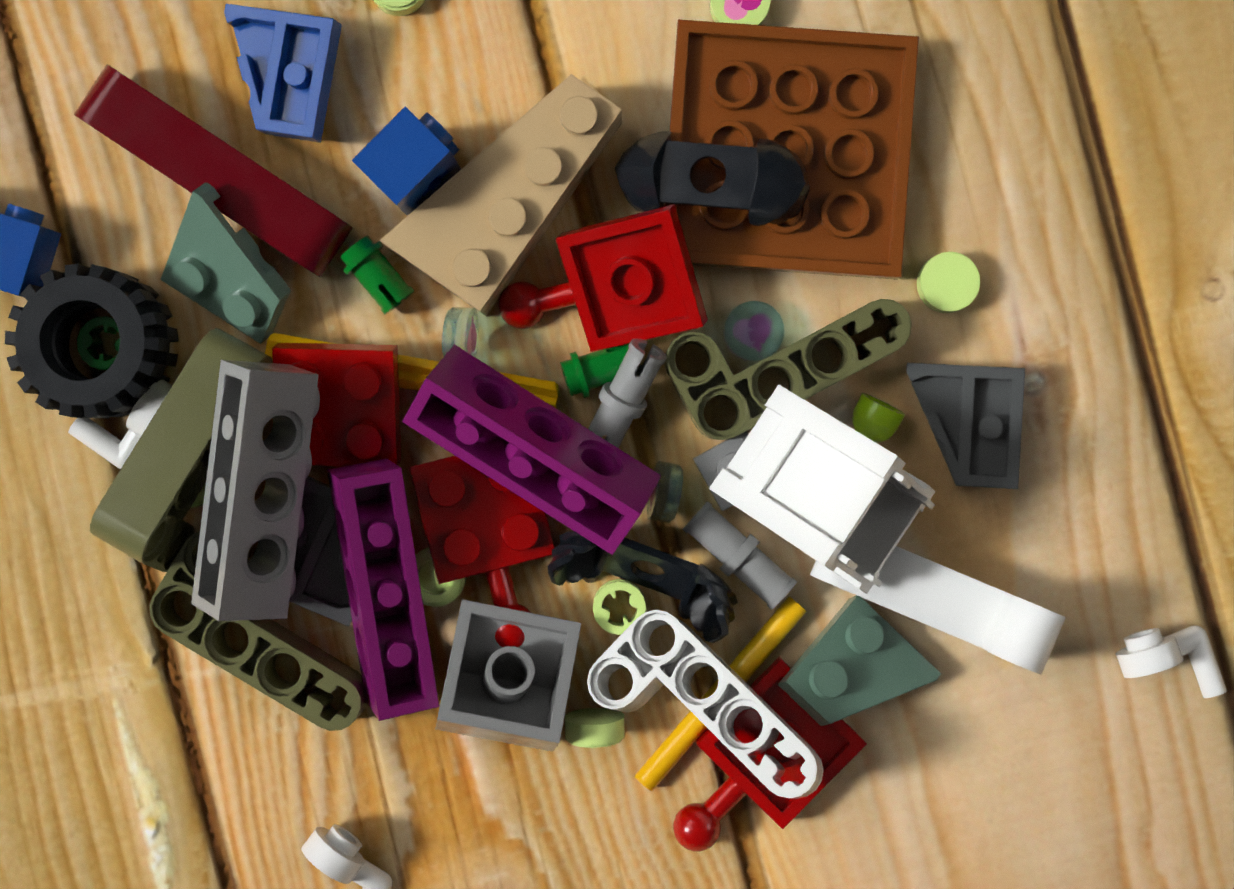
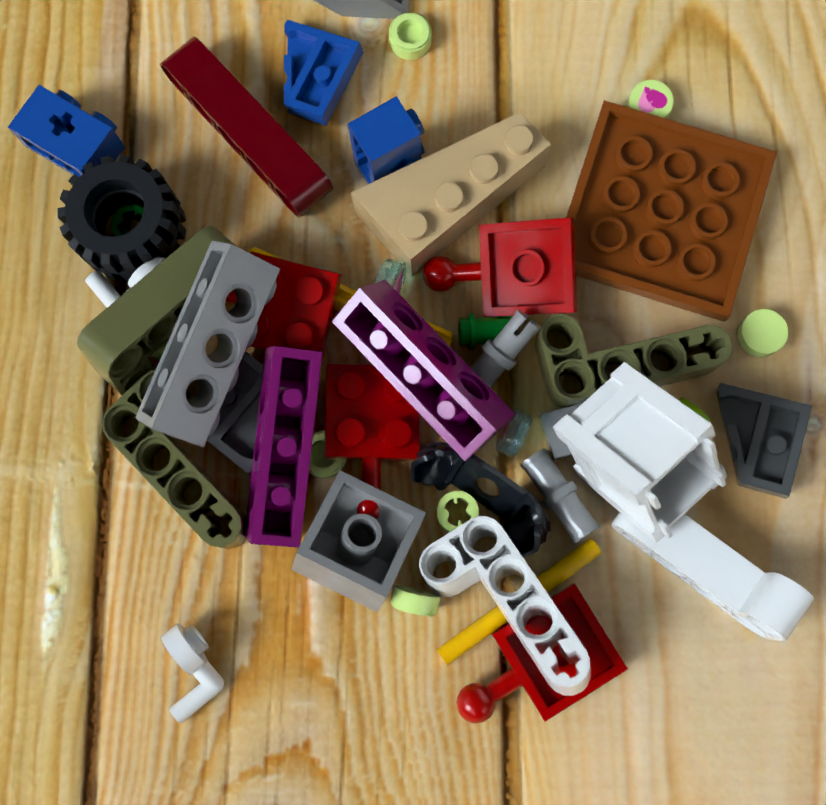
camera: 25 degrees right, 10 degrees down
(224, 269) = (232, 191): sand green wing -> none
(376, 274) = (336, 215): green pin -> none
(753, 331) = (607, 330): clear light blue tile -> none
(760, 179) = (639, 216): black piece -> none
(855, 666) = (632, 605): sand green wing -> none

